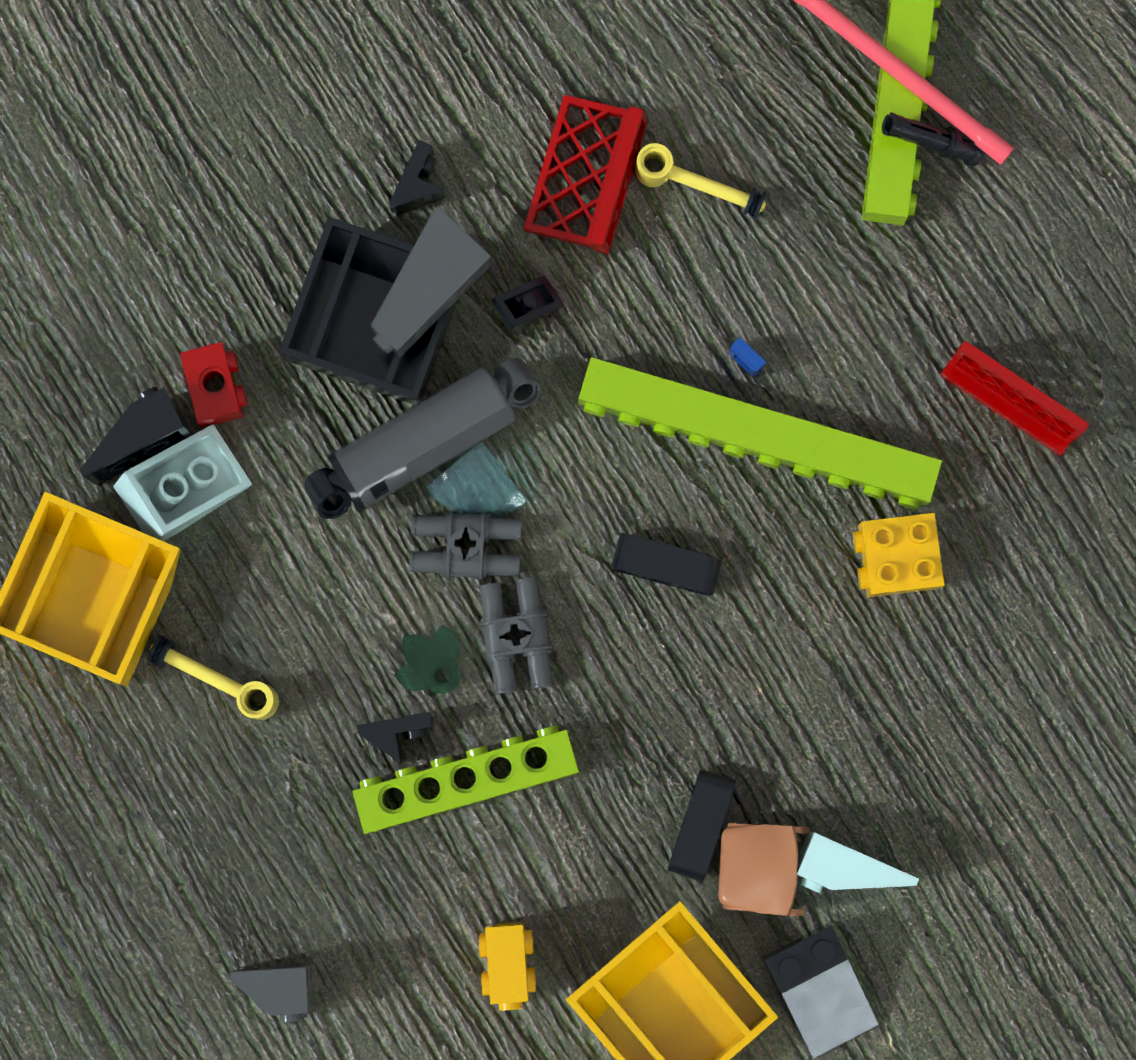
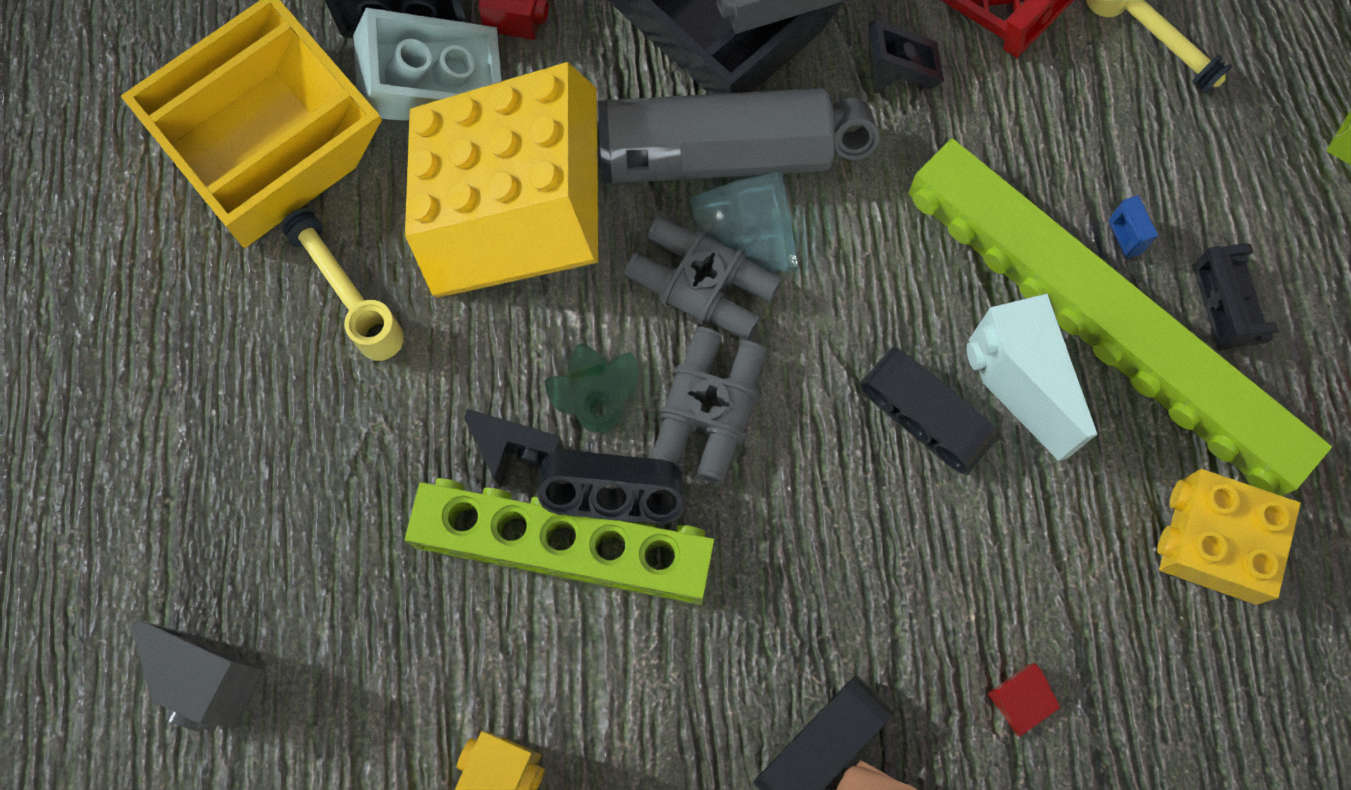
camera: 25 degrees right, 10 degrees down
(294, 554) = (504, 181): none -> yellow slope
(481, 729) = (631, 501): none -> black beam
(718, 505) = (1032, 374): none -> light aqua slope
(816, 728) = (1025, 699): none -> red slope
(839, 374) = (1231, 297): none -> black hinge

